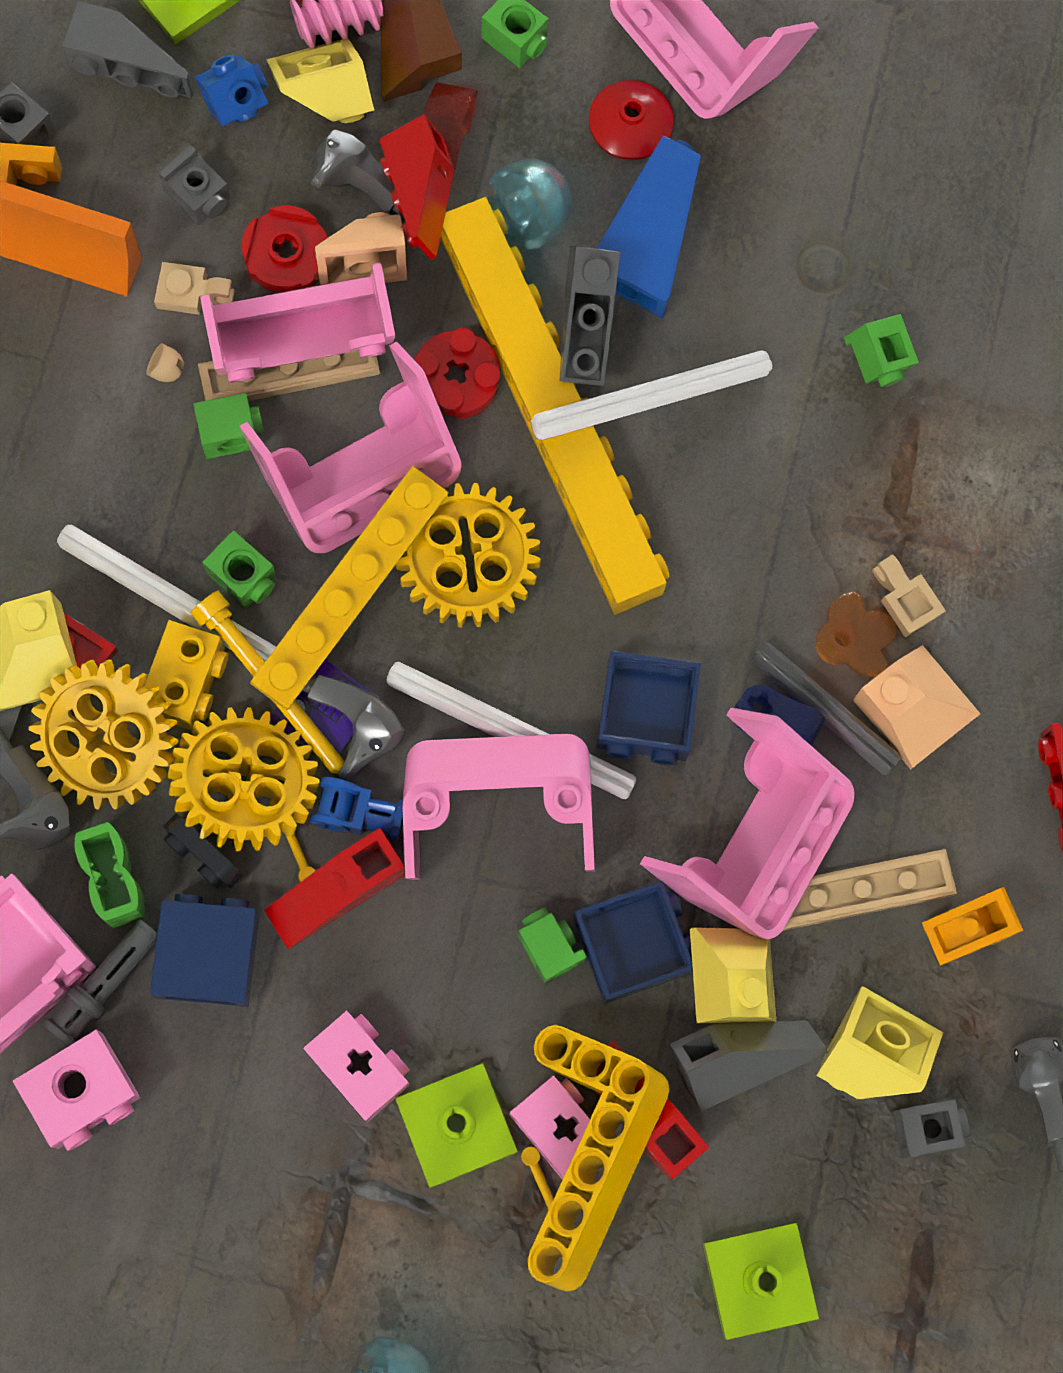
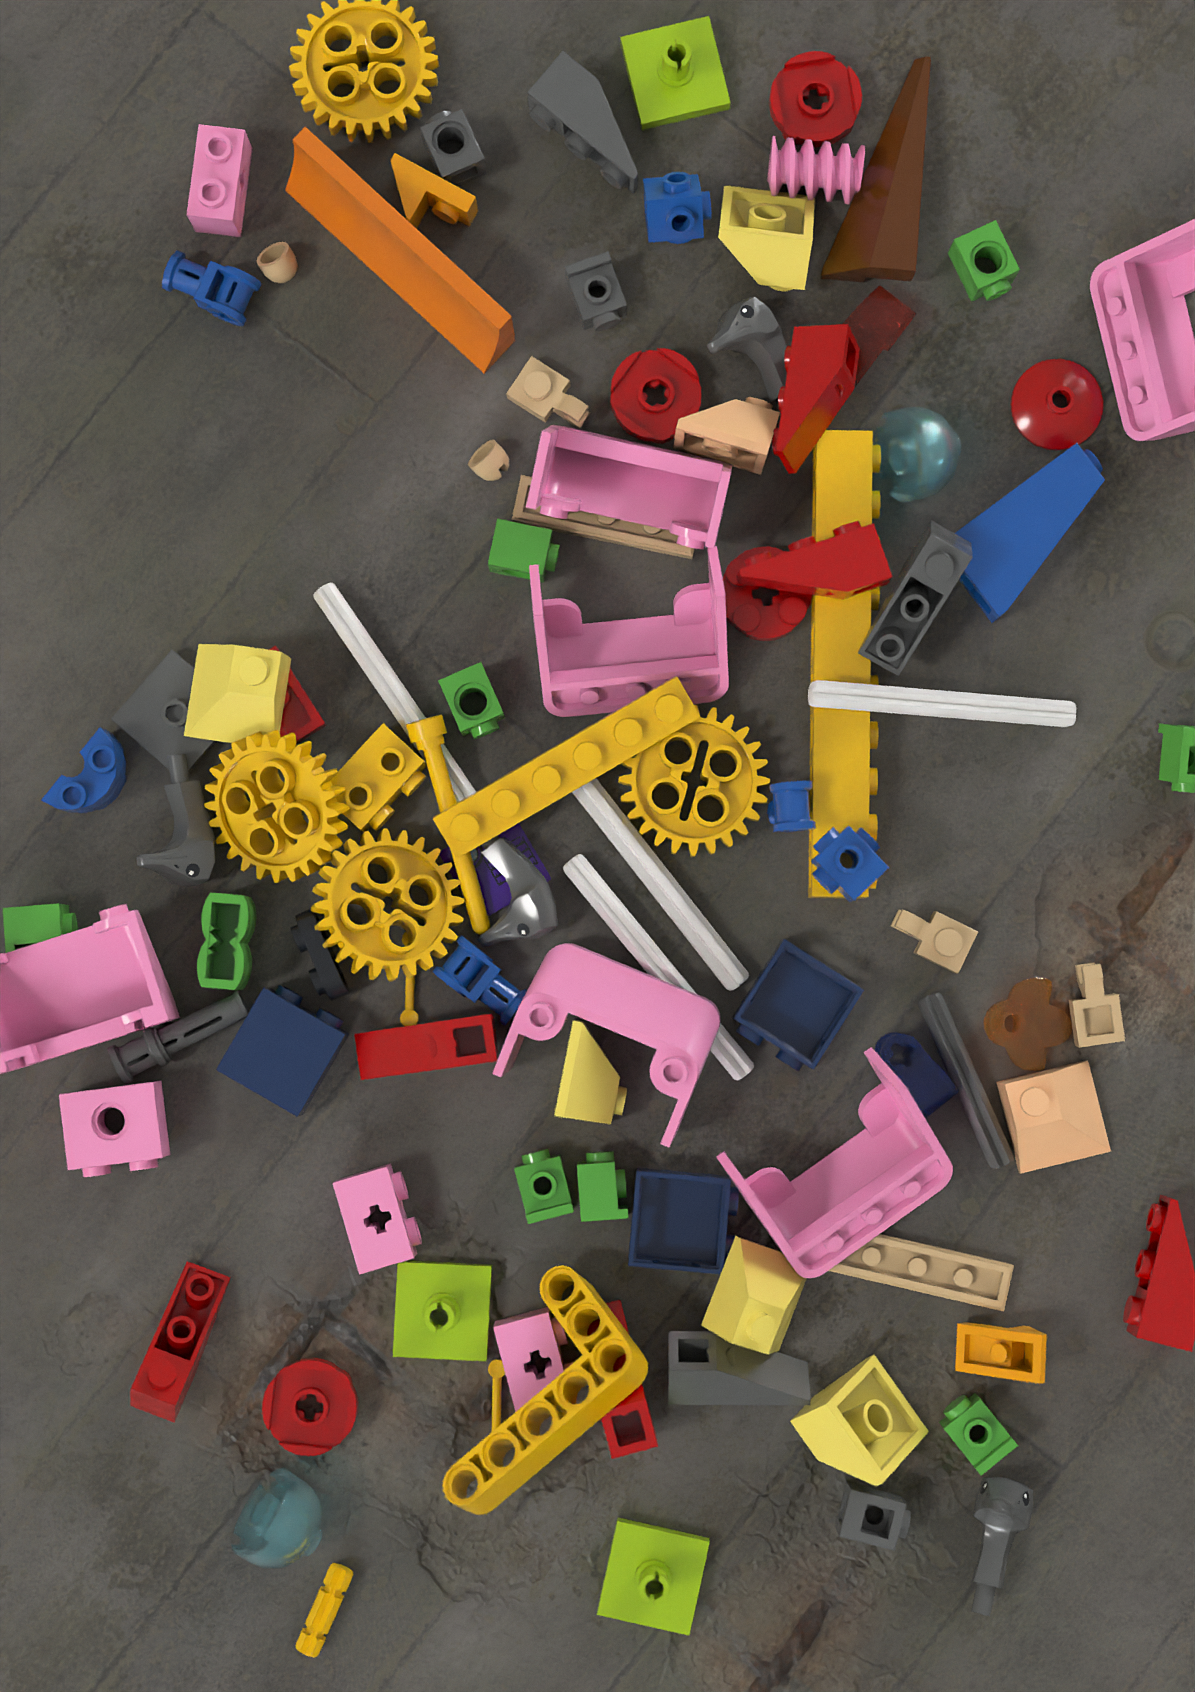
camera: 35 degrees right, 10 degrees up
(224, 1268) = (179, 1342): none -> red slope
(349, 1257) = (288, 1422): none -> red plate
(479, 656) = (662, 884): none -> white axle
(494, 851) = (588, 1081): none -> light yellow slope
(499, 985) = (557, 1200): none -> bright green brick
(502, 319) = (829, 568): none -> red slope
(562, 535) = (790, 807): none -> blue connector
(634, 554) = (865, 862): none -> blue brick
(746, 598) = (940, 939): none -> tan plate
(966, 1013) = (988, 1449): none -> bright green brick

